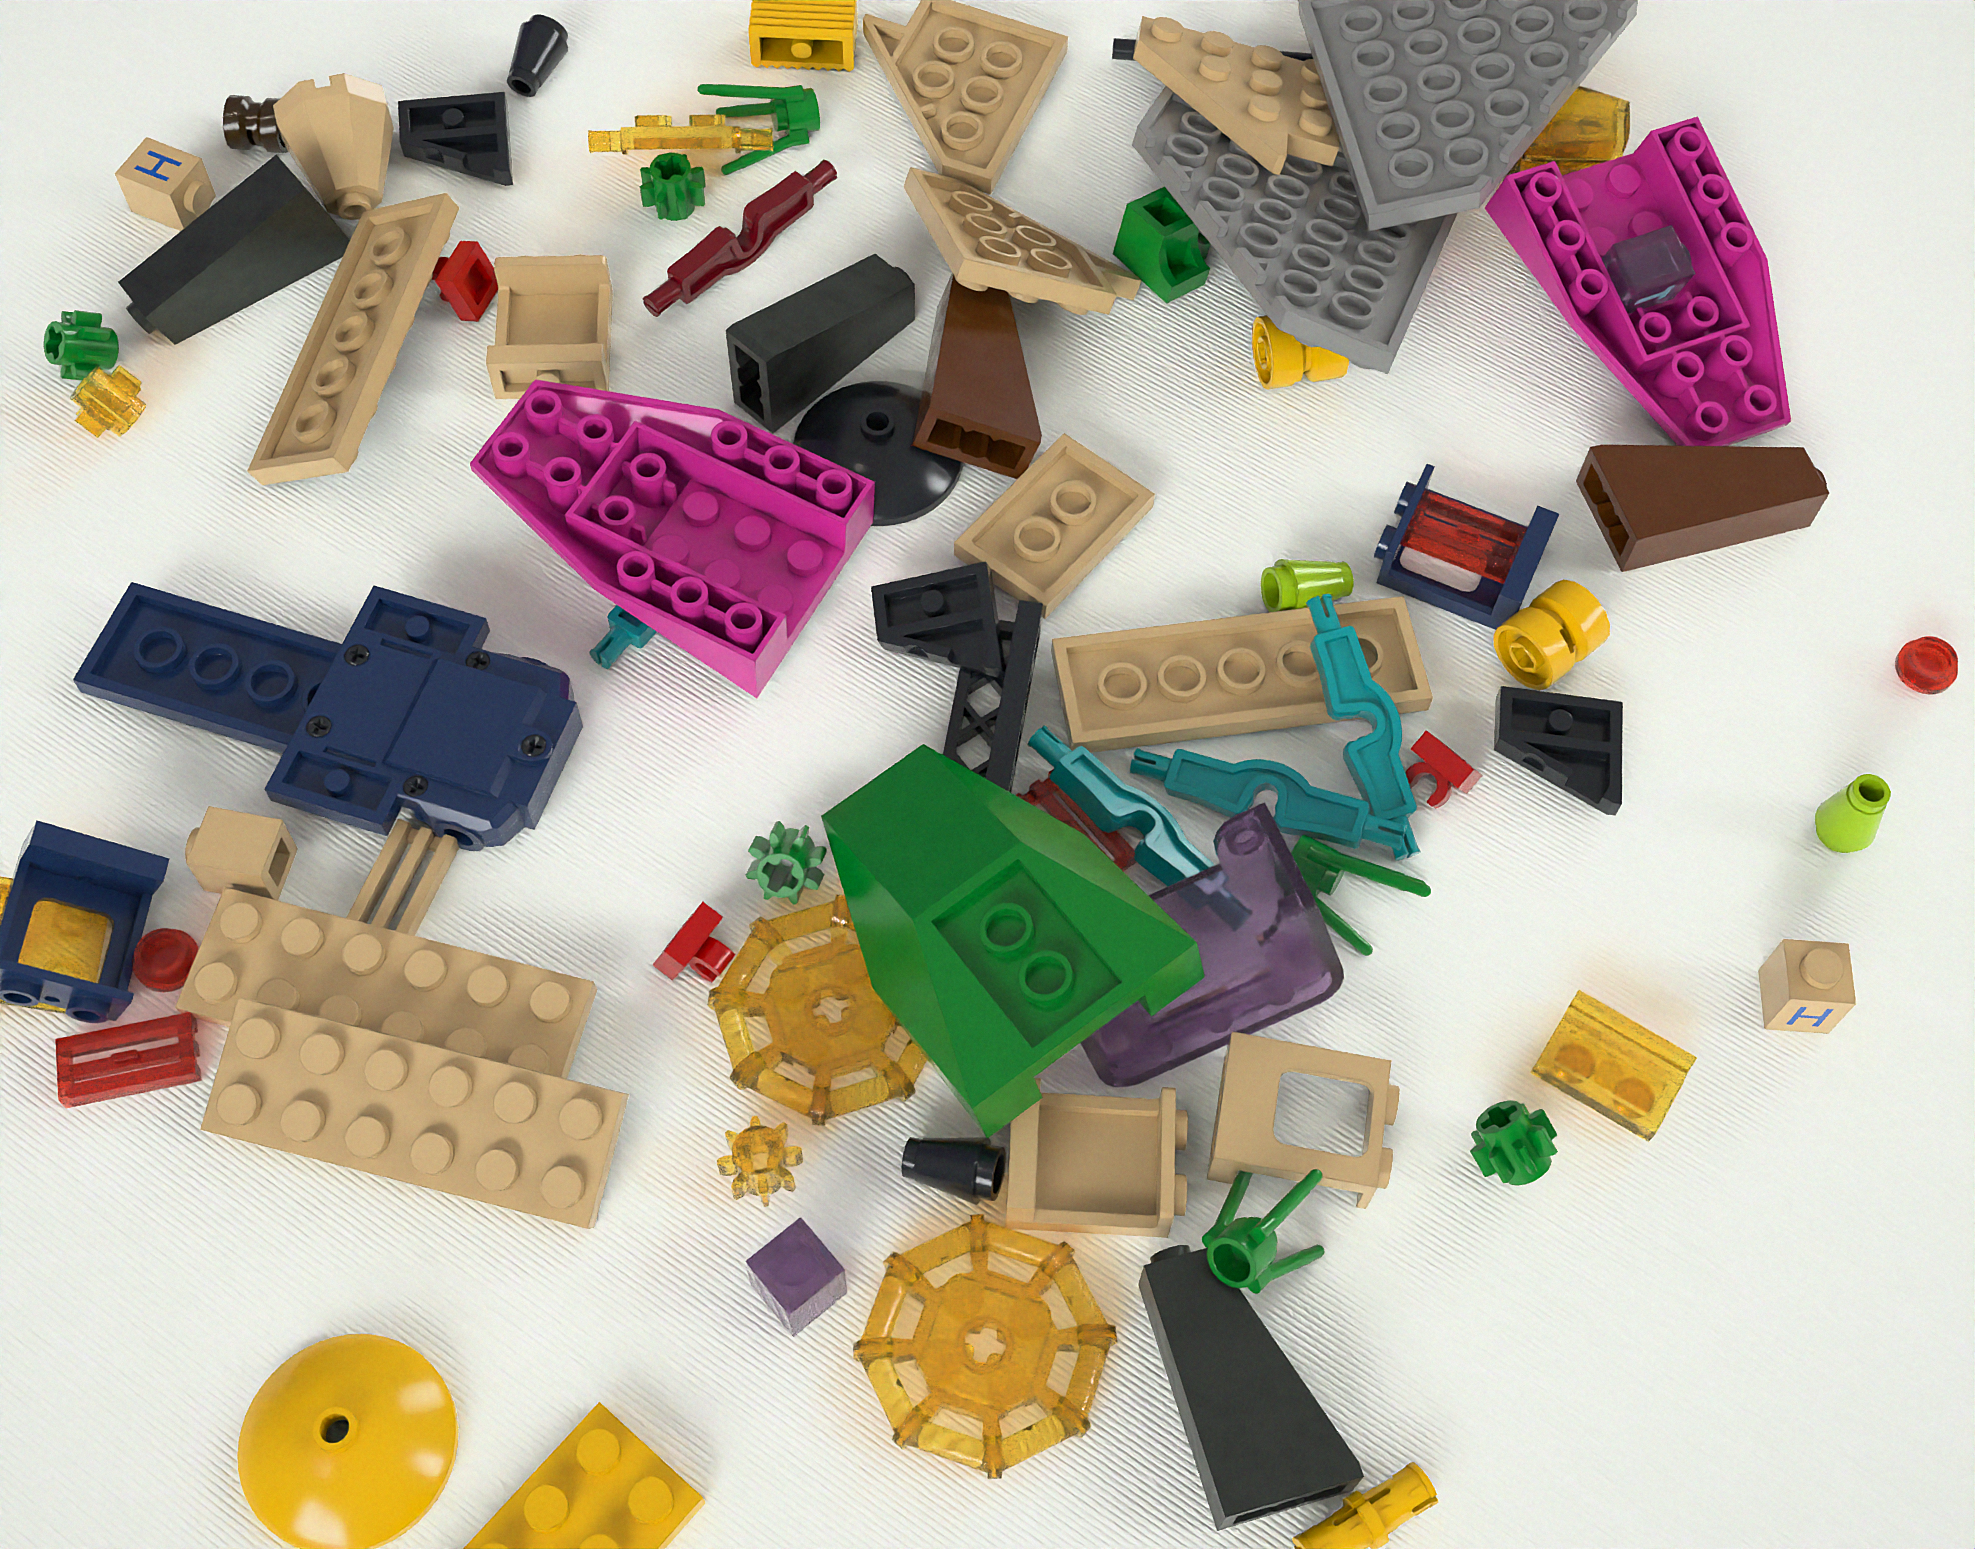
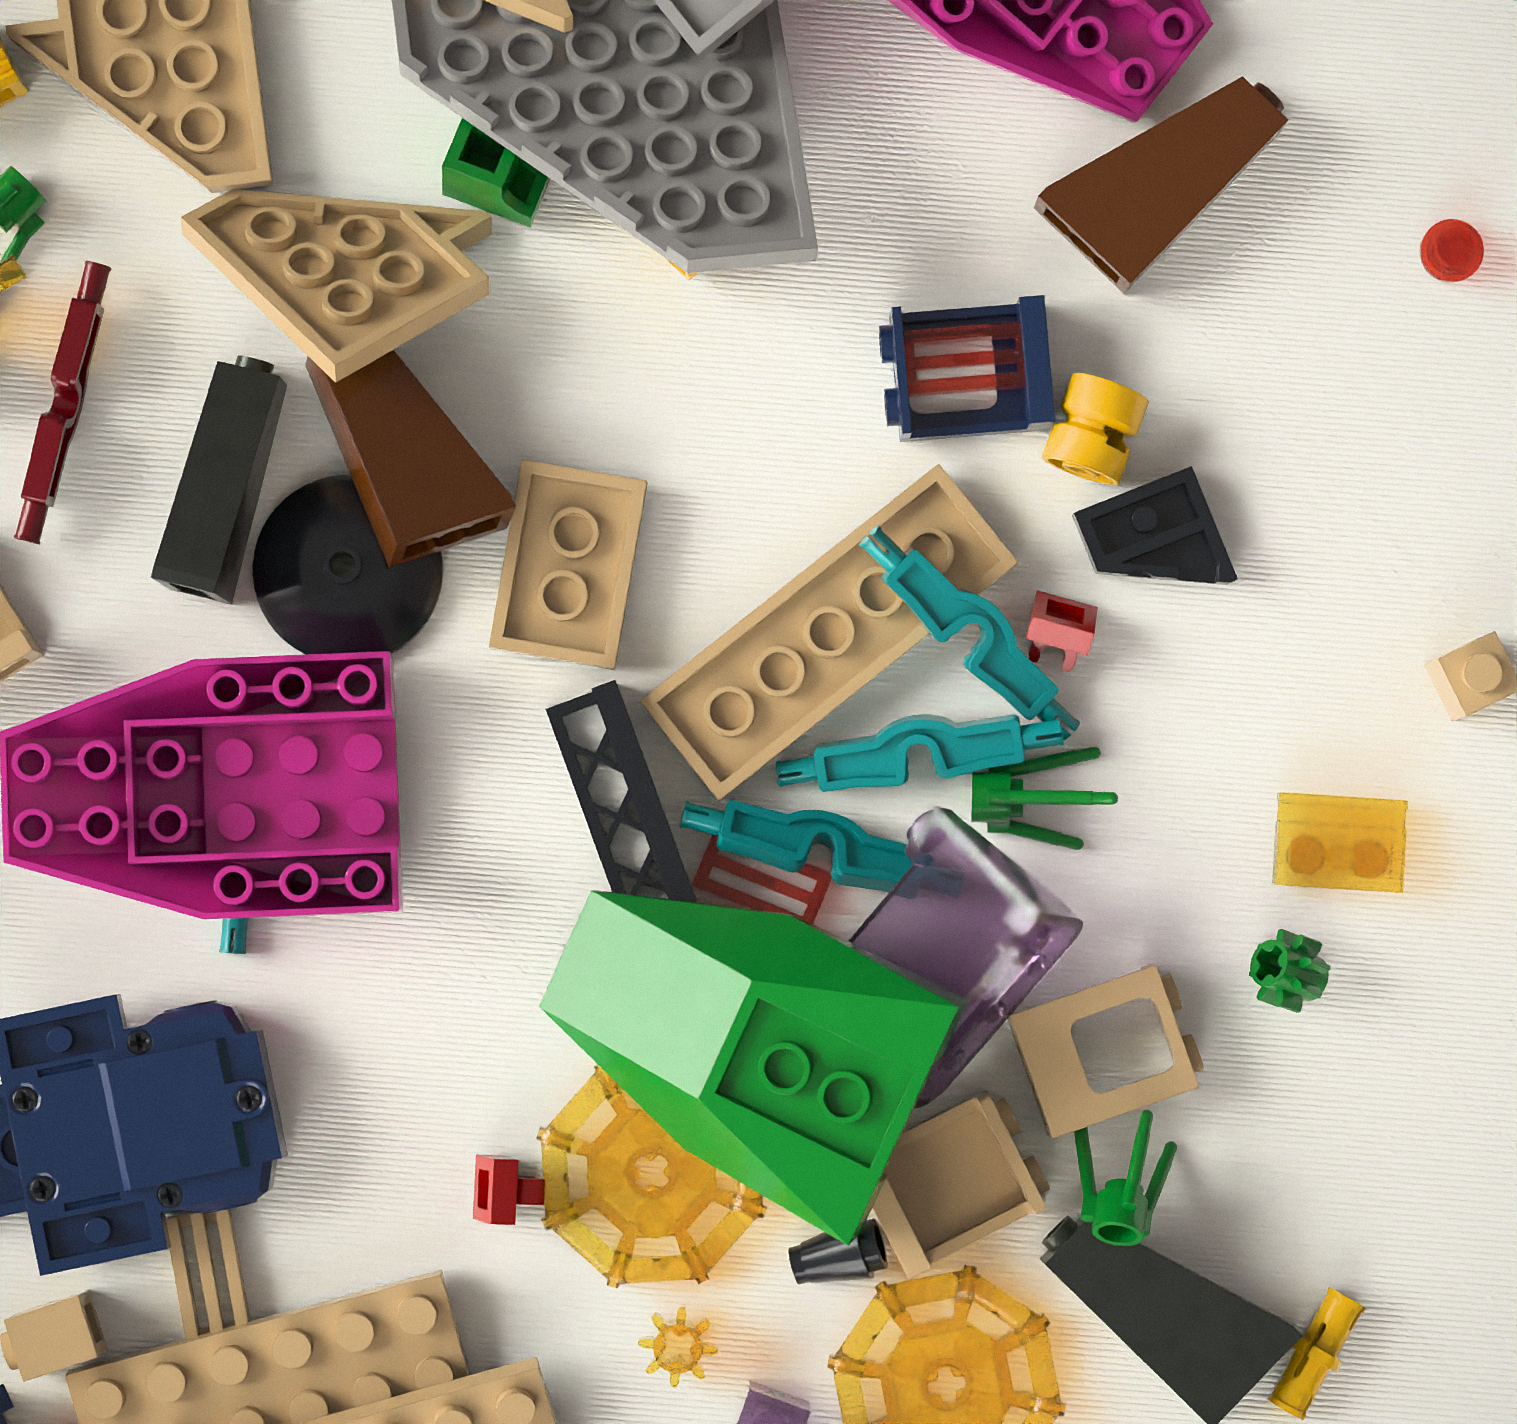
camera: 30 degrees left, 25 degrees up
(778, 878) = (535, 1067): green gear -> none
(943, 618) = (527, 736): black wing -> none
(1295, 582) = (837, 499): lime cone -> none
(1853, 814) = (1434, 481): lime cone -> none

